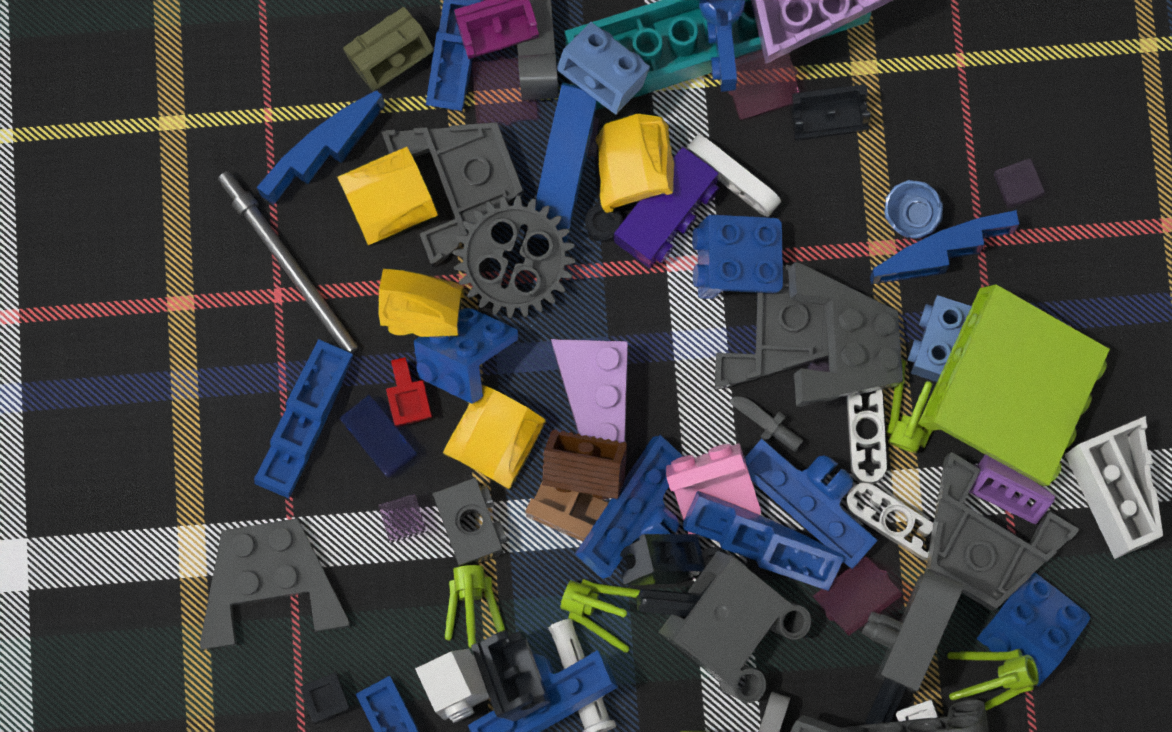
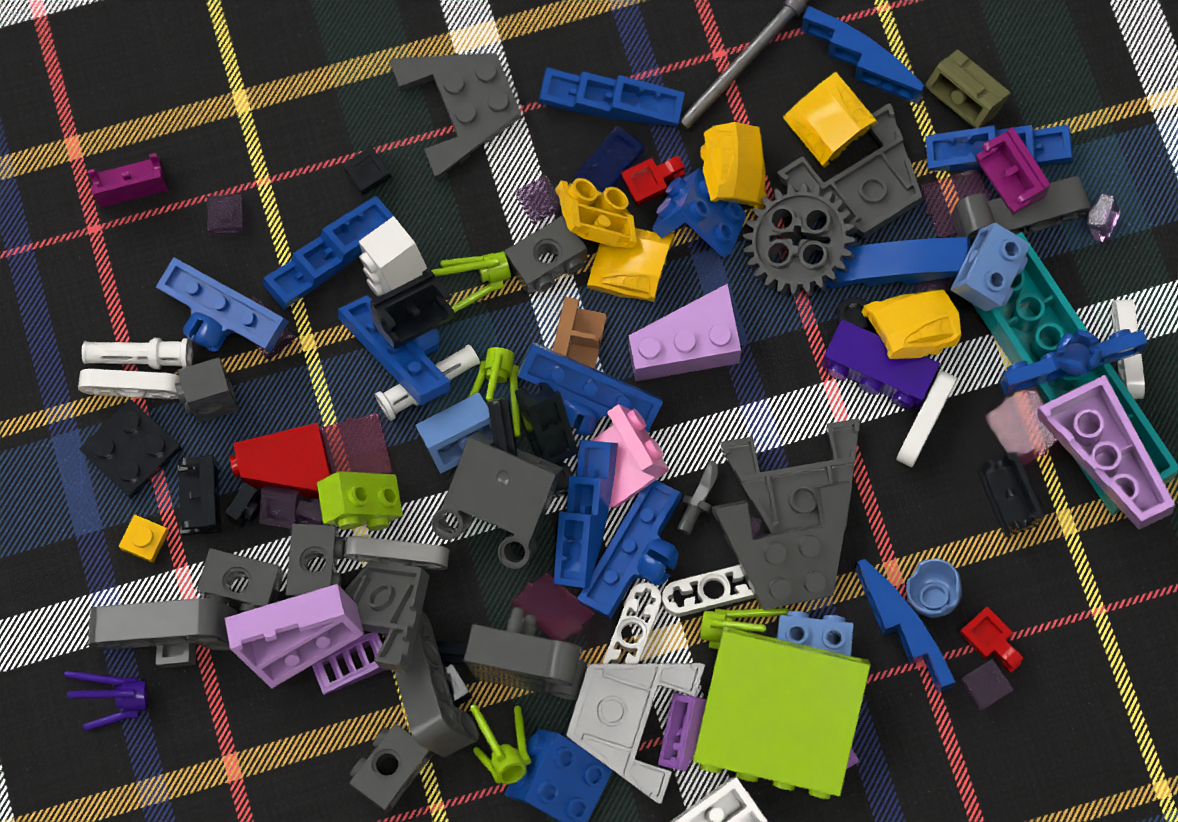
camera: 75 degrees right, 5 degrees down
(443, 457) = (597, 214): none -> yellow slope
(584, 464) = (616, 333): reddish brown brick -> none
(646, 657) = (449, 430): none -> medium blue brick
(737, 255) = (849, 437): blue bracket -> none
(971, 169) = (989, 636): none -> red plate

